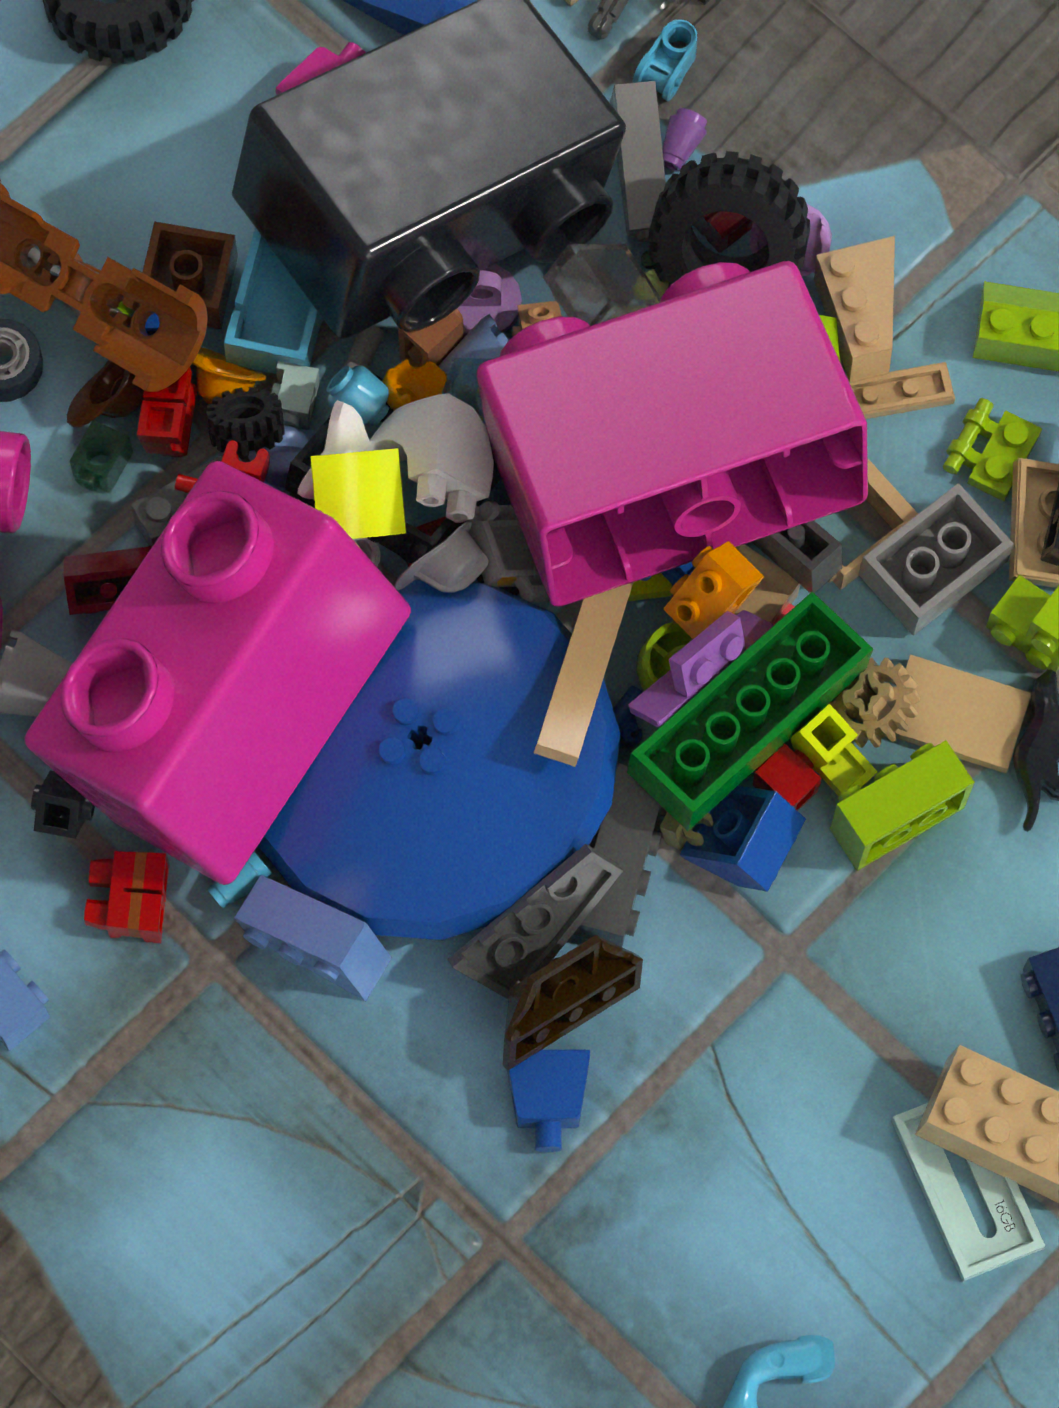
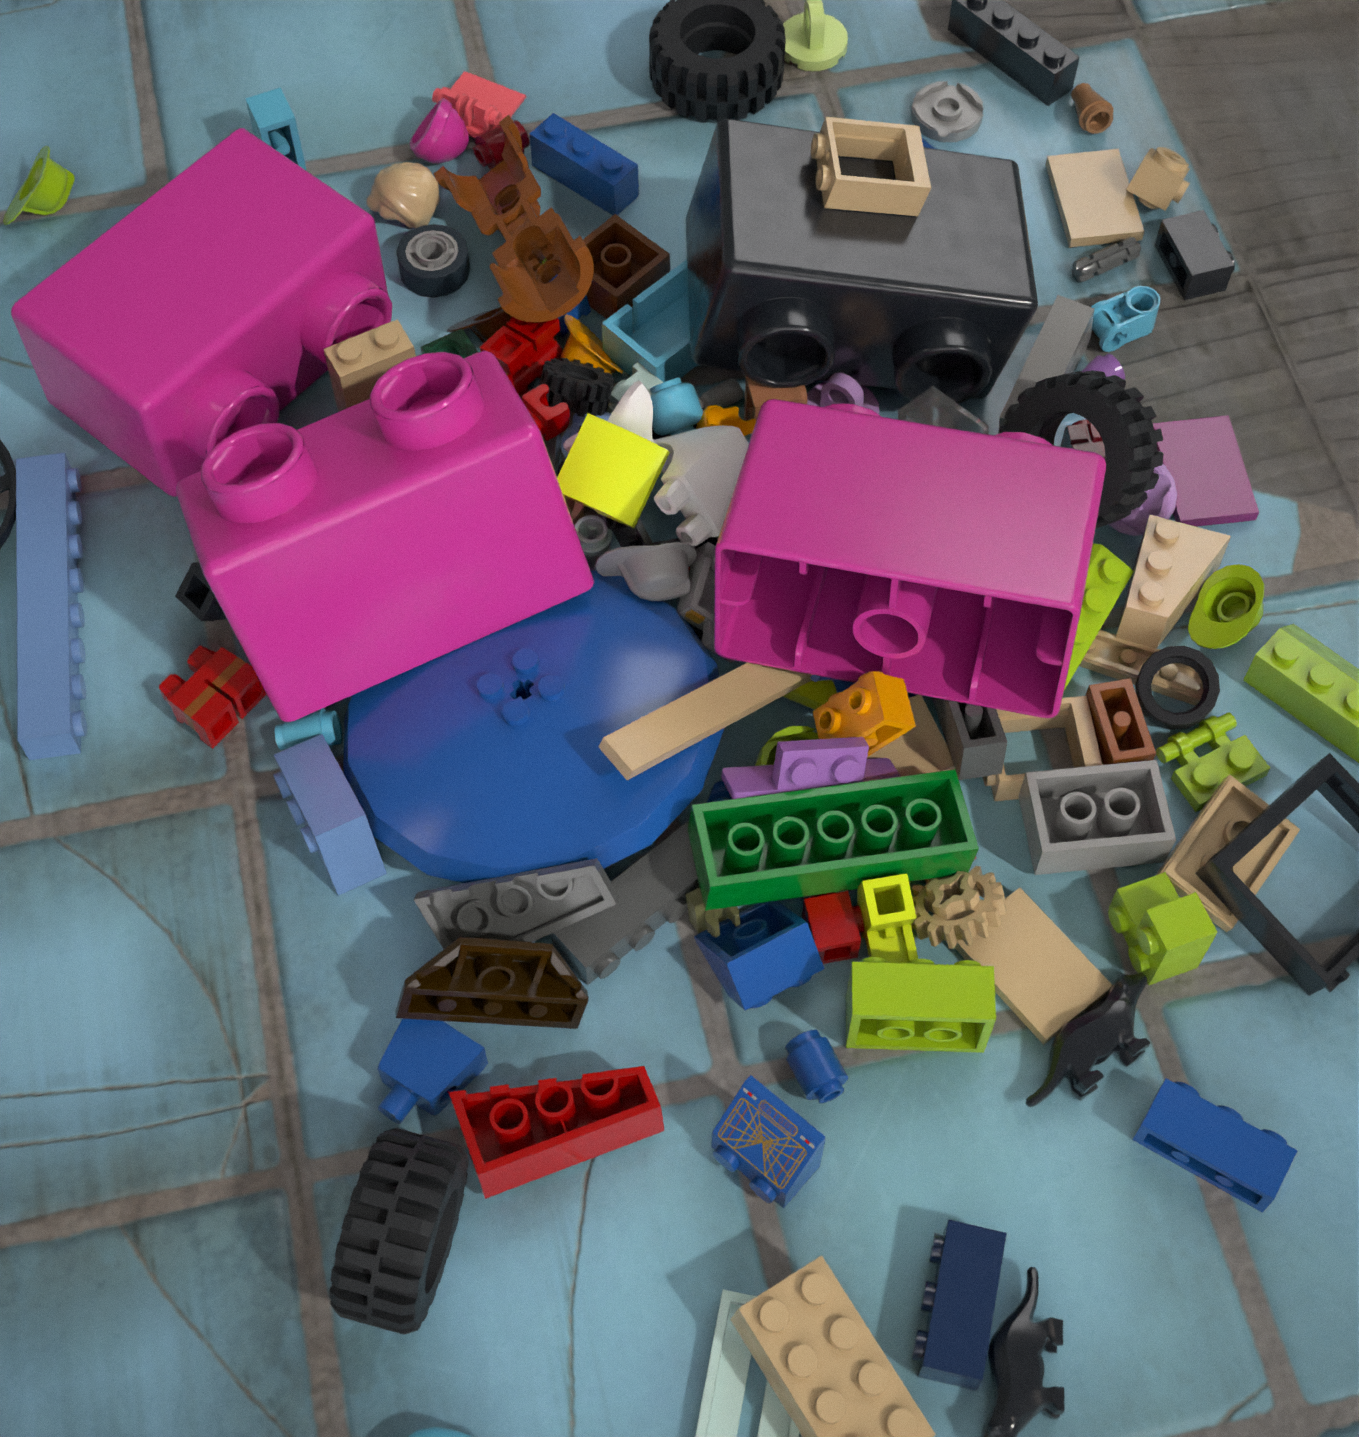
camera: 35 degrees right, 10 degrees down
(55, 517) = (363, 359): none -> tan brick
(73, 176) = (584, 164): none -> blue brick
(443, 58) = (871, 141): none -> tan window
(641, 1226) = (398, 1230): none -> black tyre
(678, 1081) = (554, 1124): none -> red wedge
(829, 174) = (1207, 472): none -> tile
(849, 901) = (816, 1066): none -> blue brick
(857, 985) = (767, 1143): none -> blue slope
(909, 467) = (1119, 723): none -> dark orange brick
(927, 304) = (1227, 607): none -> lime piece
(961, 397) = (1186, 656): none -> black tyre

